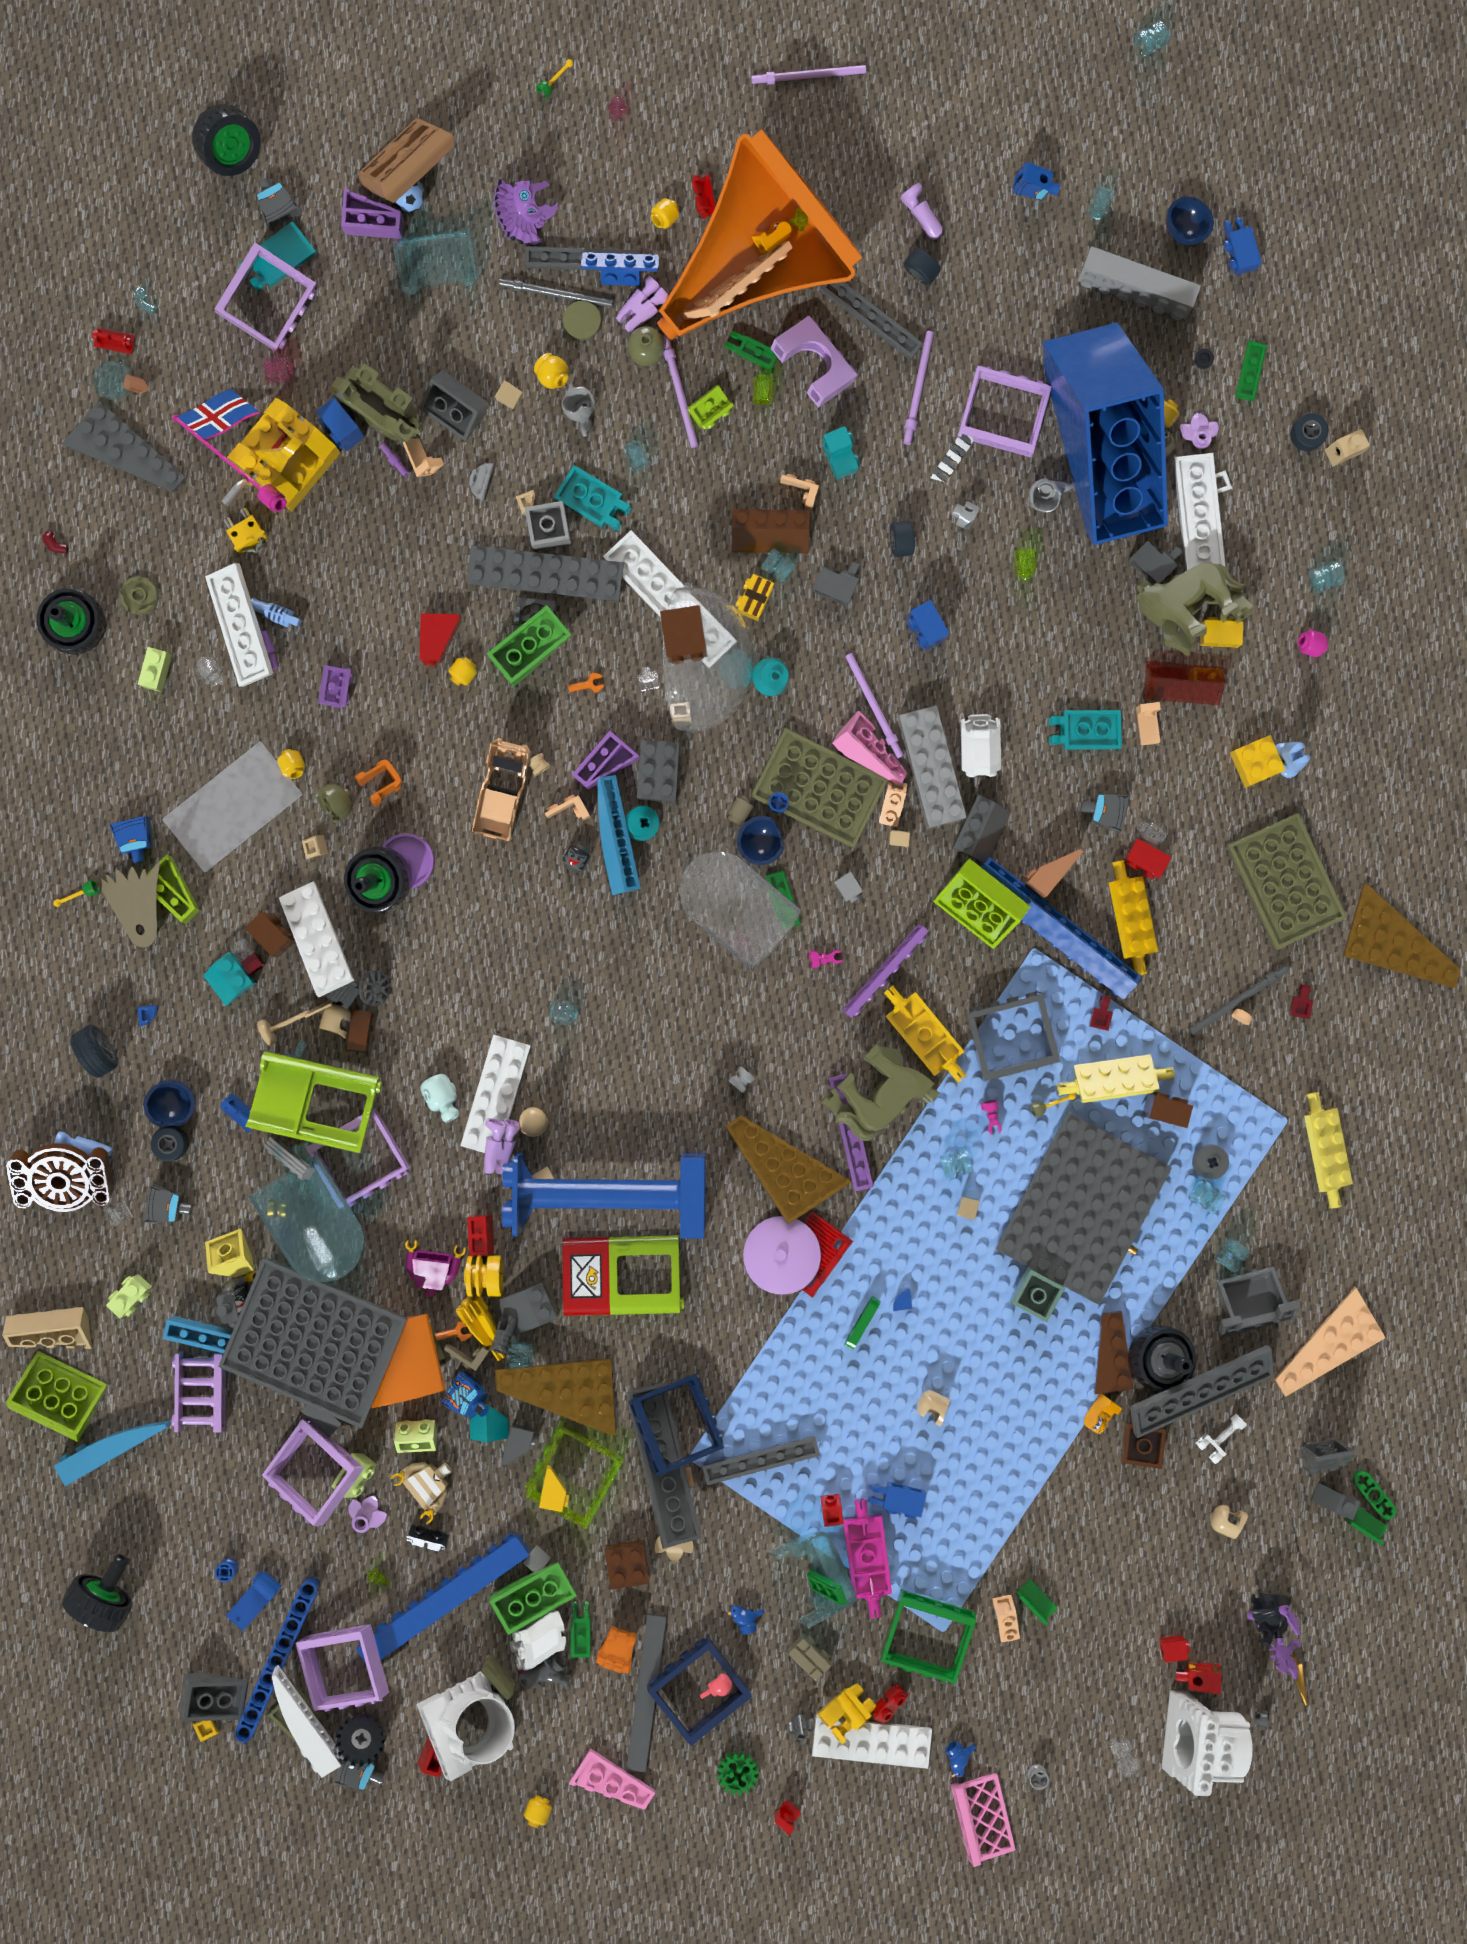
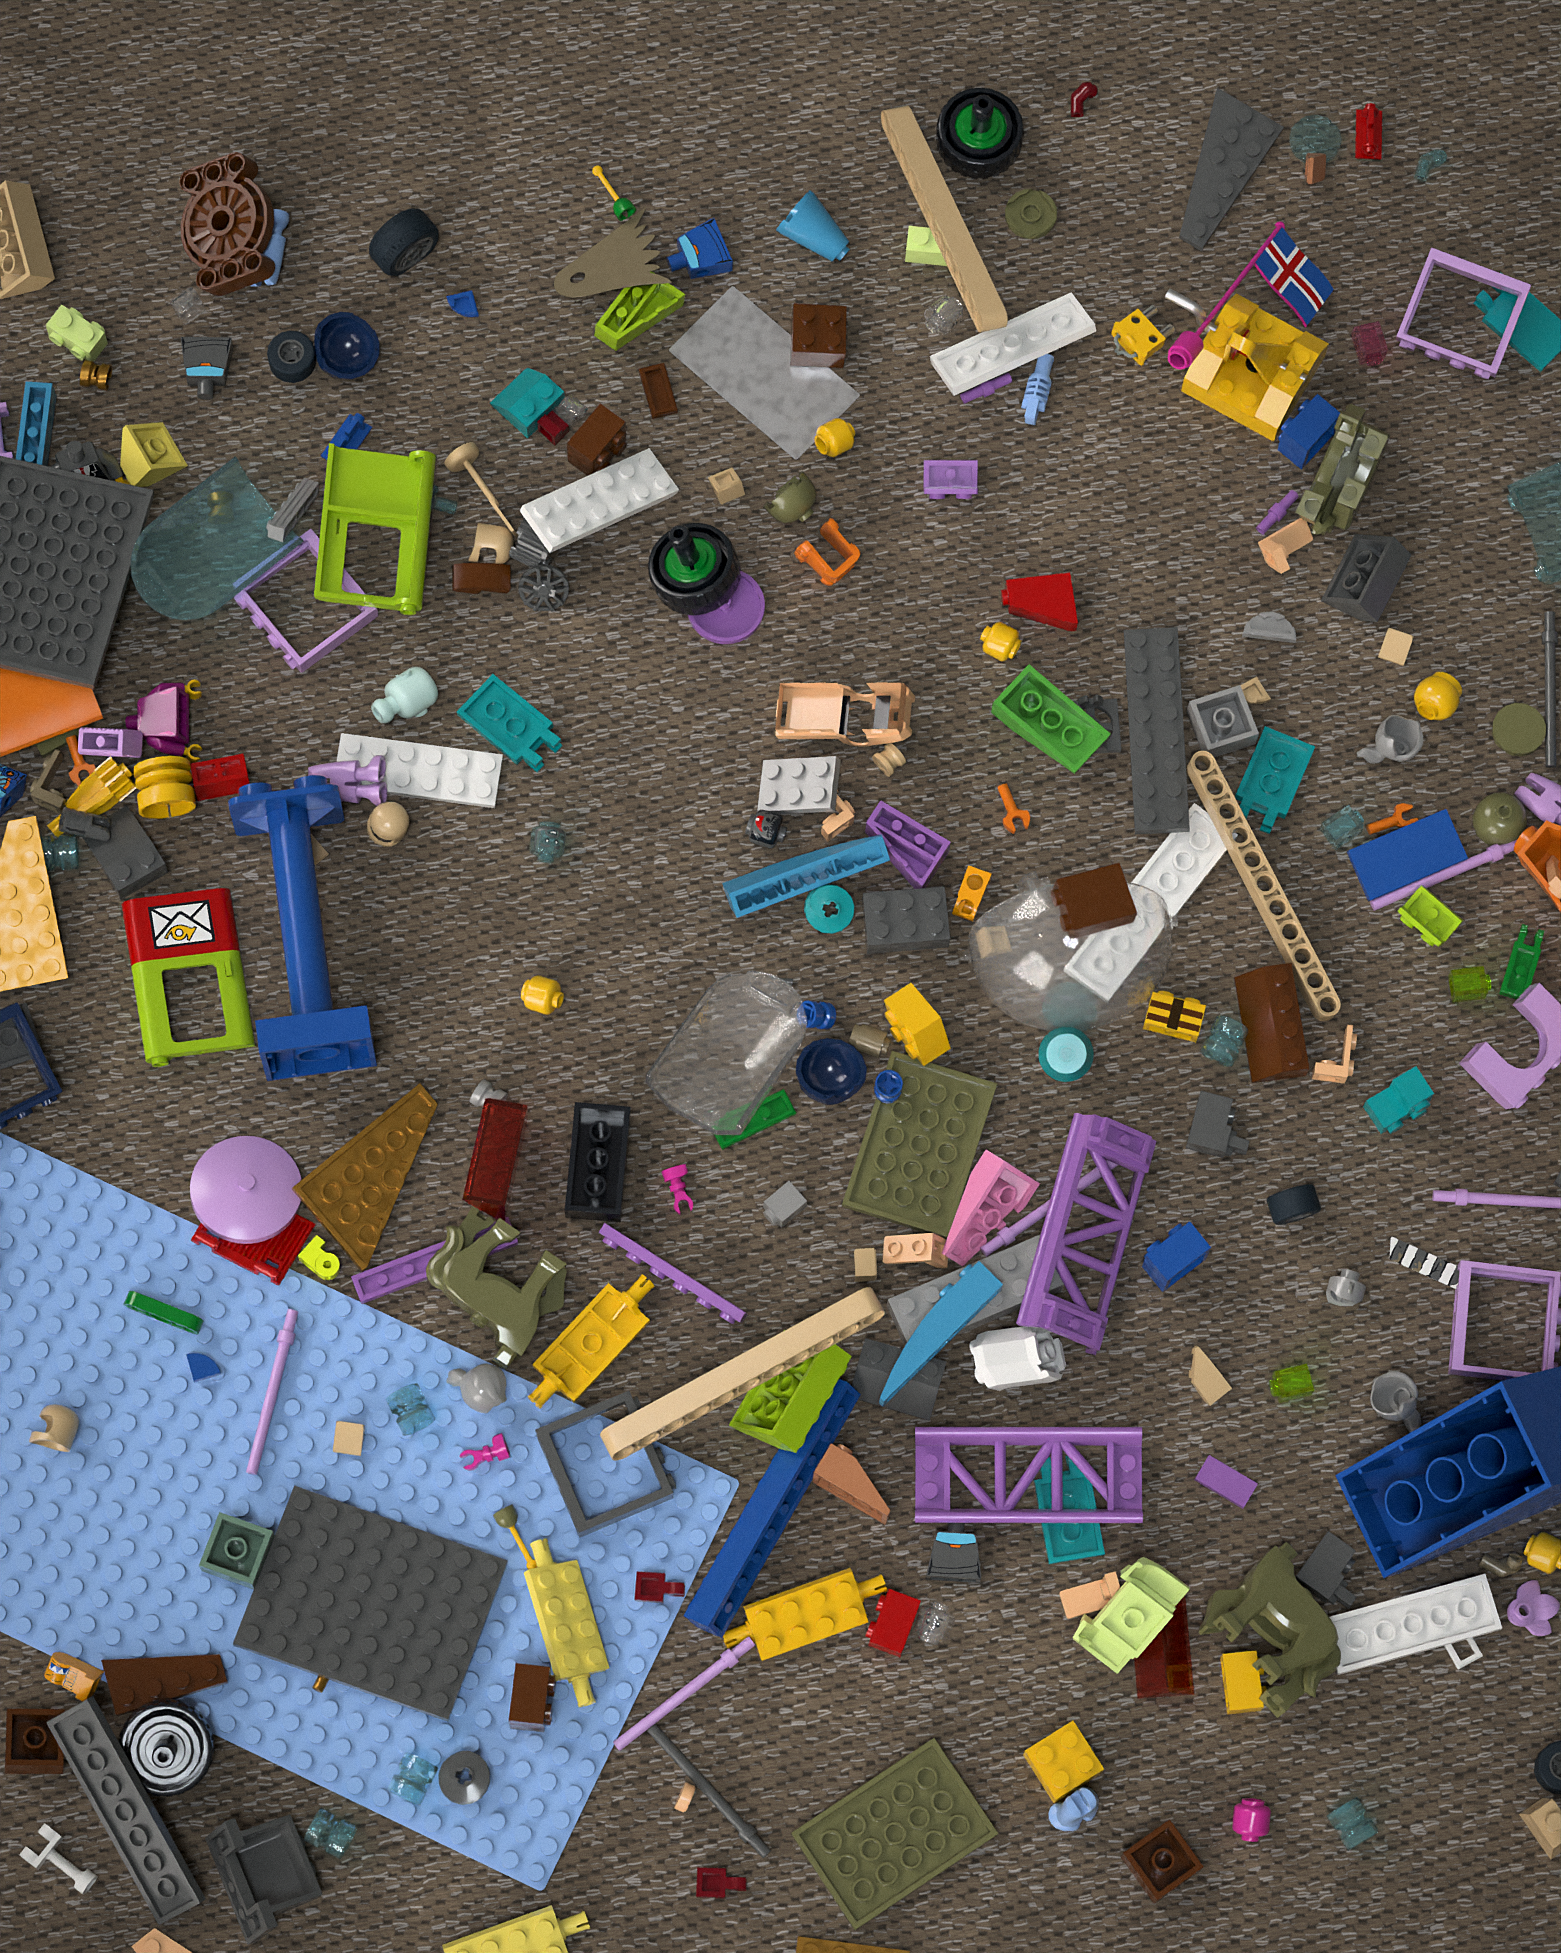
camera: 80 degrees right, 15 degrees down
(128, 752) = (814, 228): none -> dark azure cone
(137, 657) = (944, 219): none -> tan beam
(162, 1286) = (95, 374): none -> pearl gold wheel
(211, 763) = (818, 335): none -> reddish brown brick
(235, 884) = (658, 390): none -> reddish brown tile
(445, 1310) = (110, 742): none -> lavender brick
(470, 1026) = (509, 722): none -> teal tile
(549, 830) = (799, 785): none -> plate
(635, 418) = (1395, 820): none -> orange bar
(645, 723) = (971, 893): none -> light orange leg
(662, 415) = (1407, 855): none -> blue tile
(665, 525) = (1263, 872): none -> tan beam
(674, 1032) = (542, 995): none -> yellow head
(717, 842) = (819, 1015): none -> blue wheel
(738, 776) = (916, 1025): none -> yellow brick
(789, 1081) = (496, 1156): none -> clear red slope
(800, 1011) = (597, 1162): none -> black brick
(840, 1211) = (321, 1263): none -> neon yellow leg
(842, 662) = (1103, 1140): none -> medium lavender piece
(891, 1241) = (285, 1340): none -> lavender bar
(949, 1114) = (480, 1387): none -> light grey hair
(956, 793) = (943, 1322): none -> dark azure slope
(974, 934) = (742, 1373): none -> tan beam
(1010, 620) = (1207, 1378): none -> tan slope
(1083, 620) = (1226, 1481): none -> medium lavender tile
(1084, 691) = (1121, 1492): none -> medium lavender piece
(1155, 973) = (728, 1658): none -> lavender bar
(1171, 696) = (1132, 1614): none -> yellowish green piece
(1334, 707) = (1161, 1861): none -> reddish brown brick

